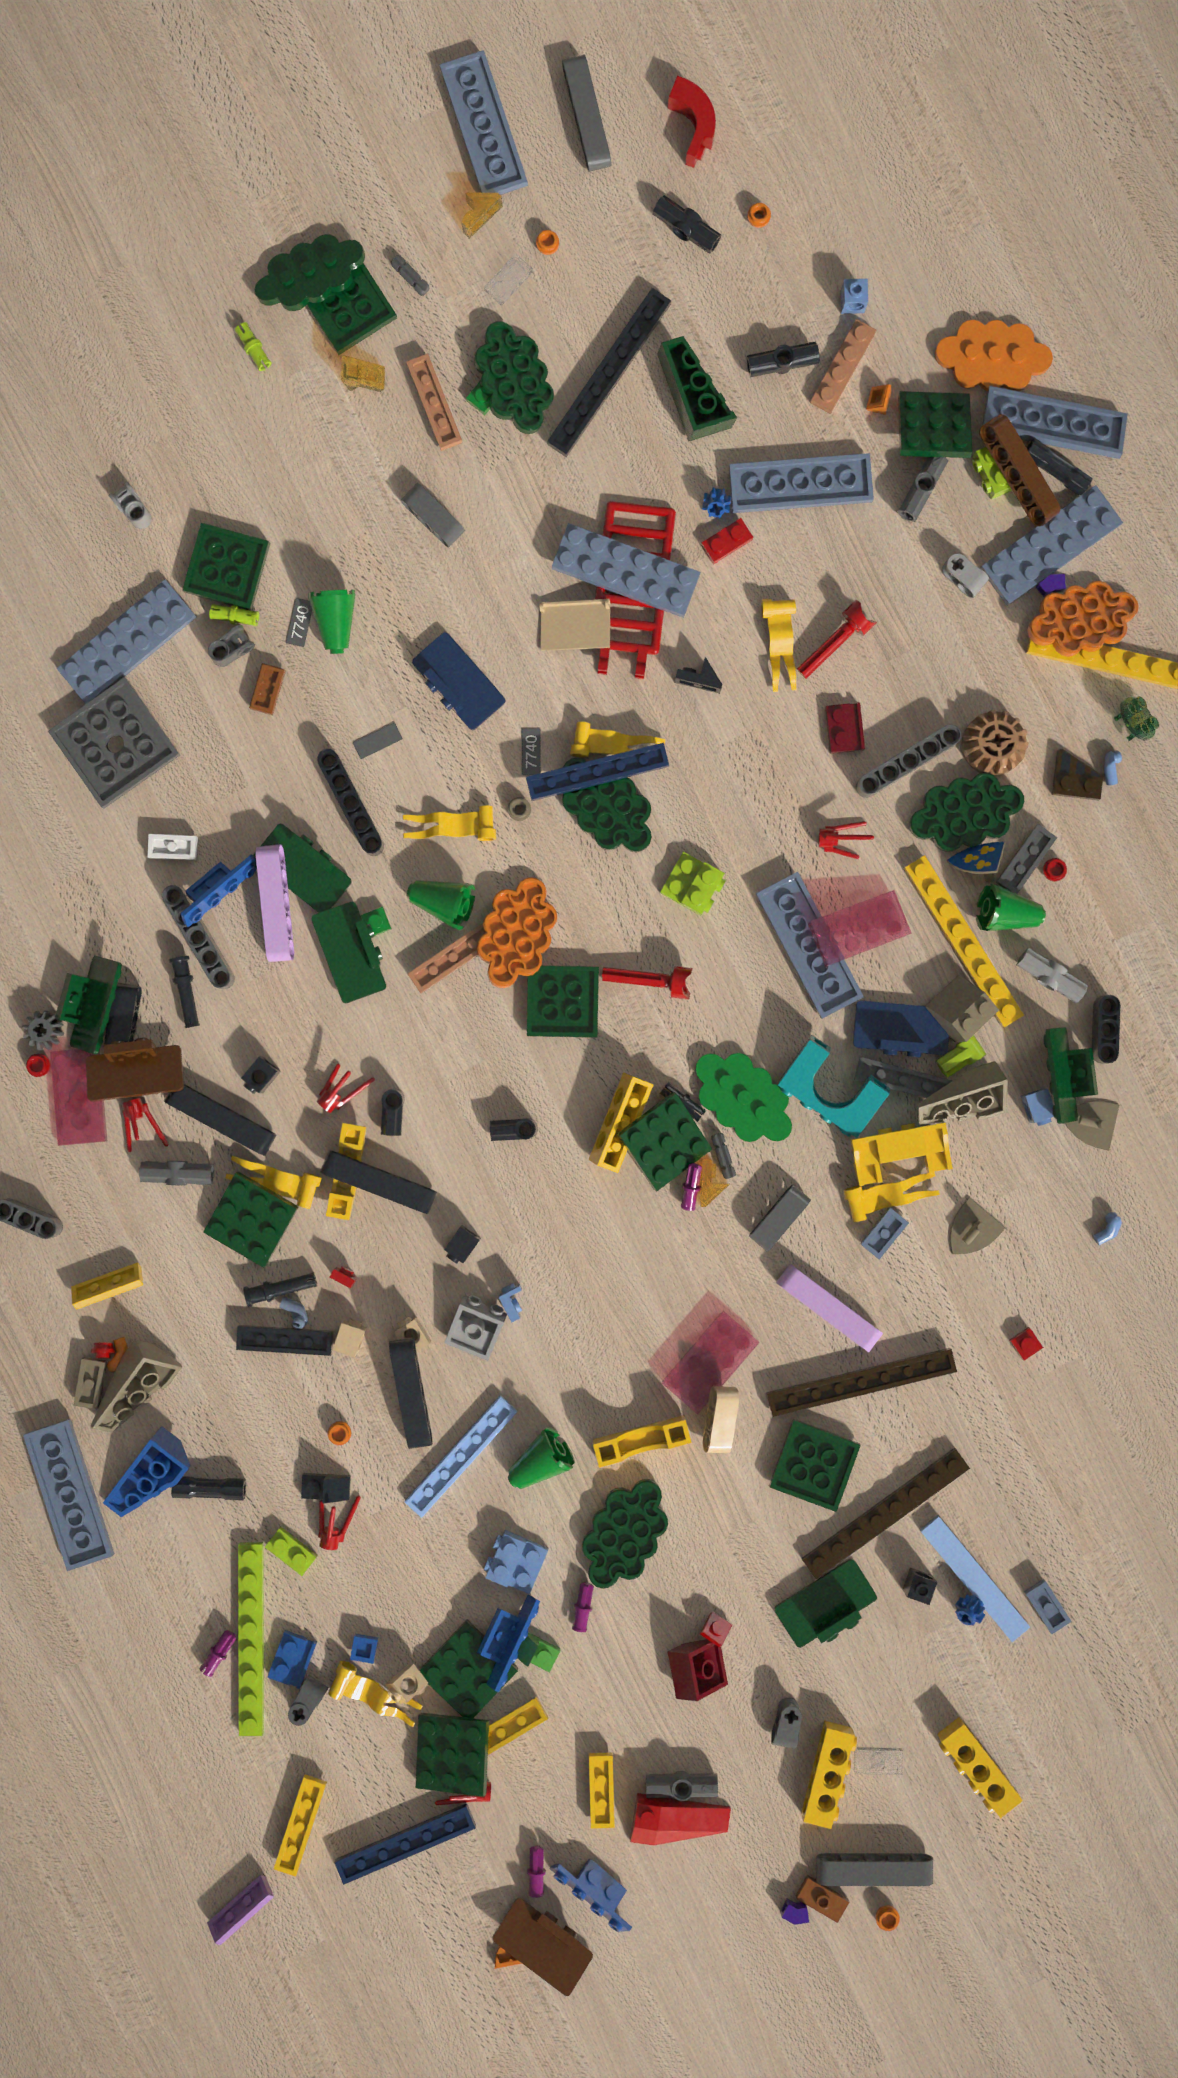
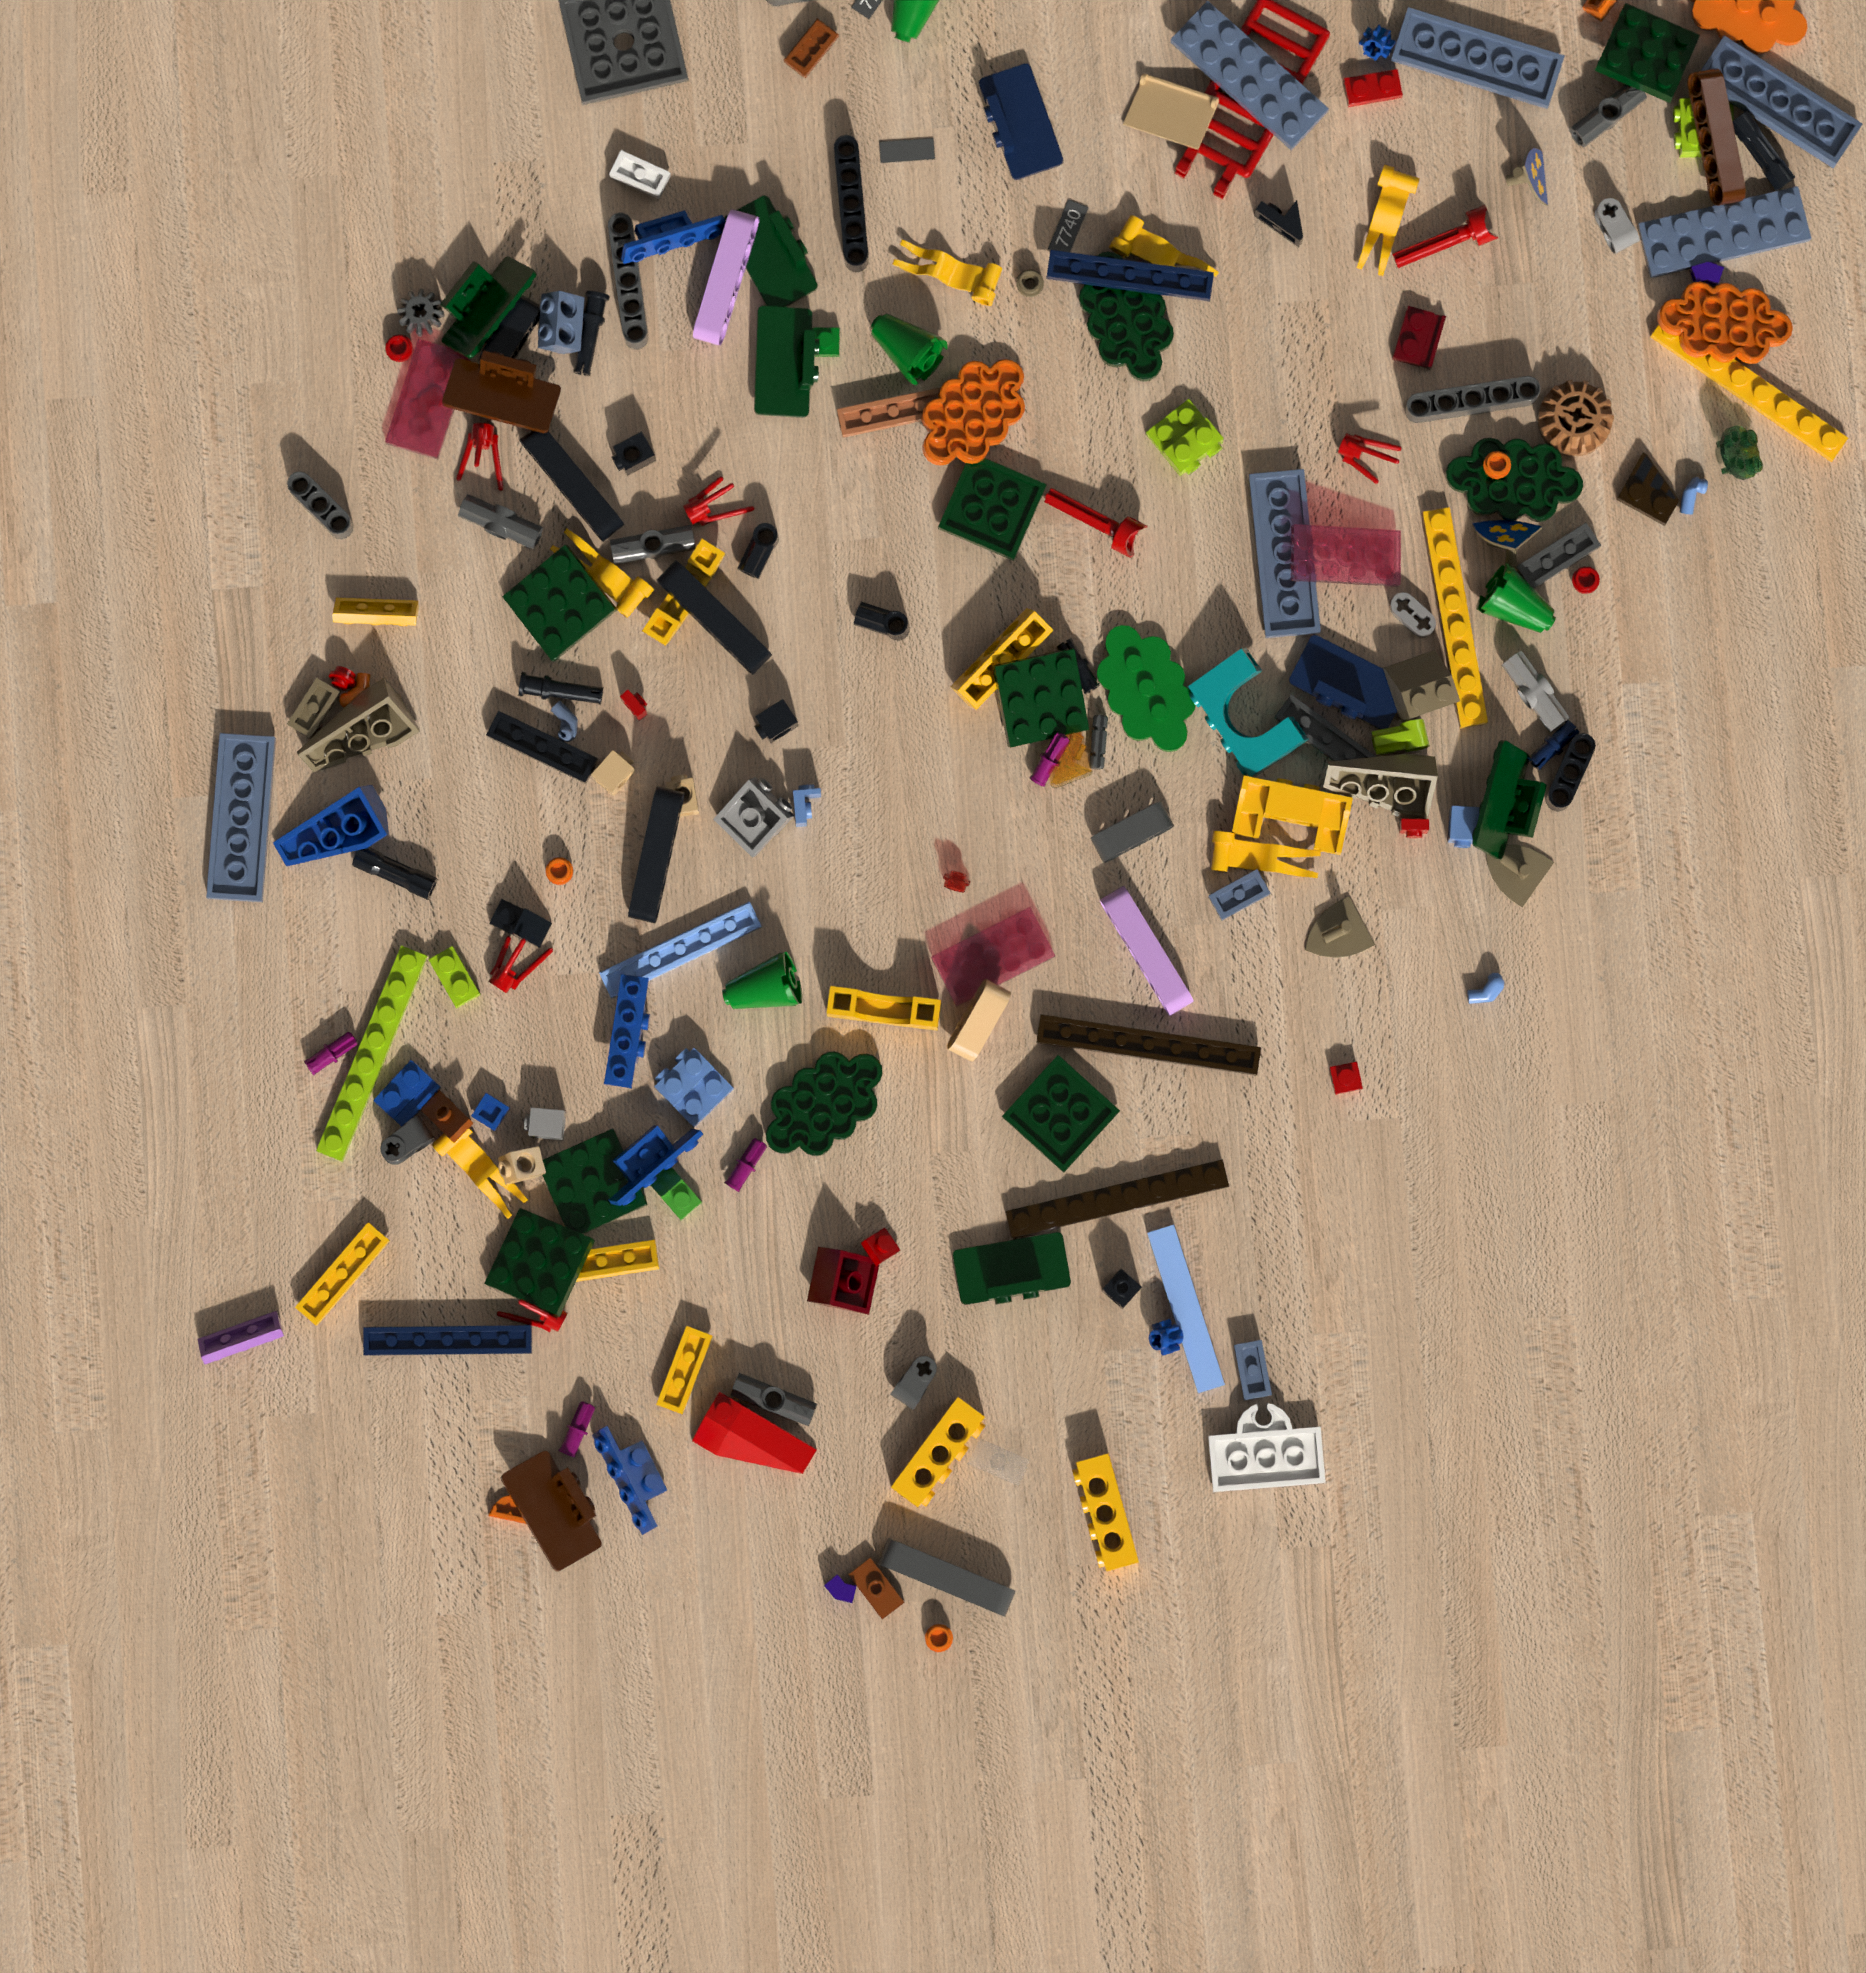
camera: 25 degrees right, 5 degrees down
(162, 993) = (560, 322): none -> sand blue brick
(292, 1150) = (671, 541): none -> dark grey piece
(330, 1668) = (447, 1116): none -> dark orange plate
(411, 1640) = (545, 1123): none -> light grey brick
(446, 1544) = (627, 1031): none -> blue bracket
(657, 1314) = (956, 881): none -> clear red plate
(884, 560) = (1533, 173): none -> shield
(928, 958) = (1416, 609): none -> light grey beam
(950, 806) = (1497, 465): none -> orange plate
(1000, 1124) = (1414, 827): none -> red plate
(1083, 1013) = (1553, 745): none -> dark blue pin
(1085, 1668) = (1266, 1454): none -> white plate

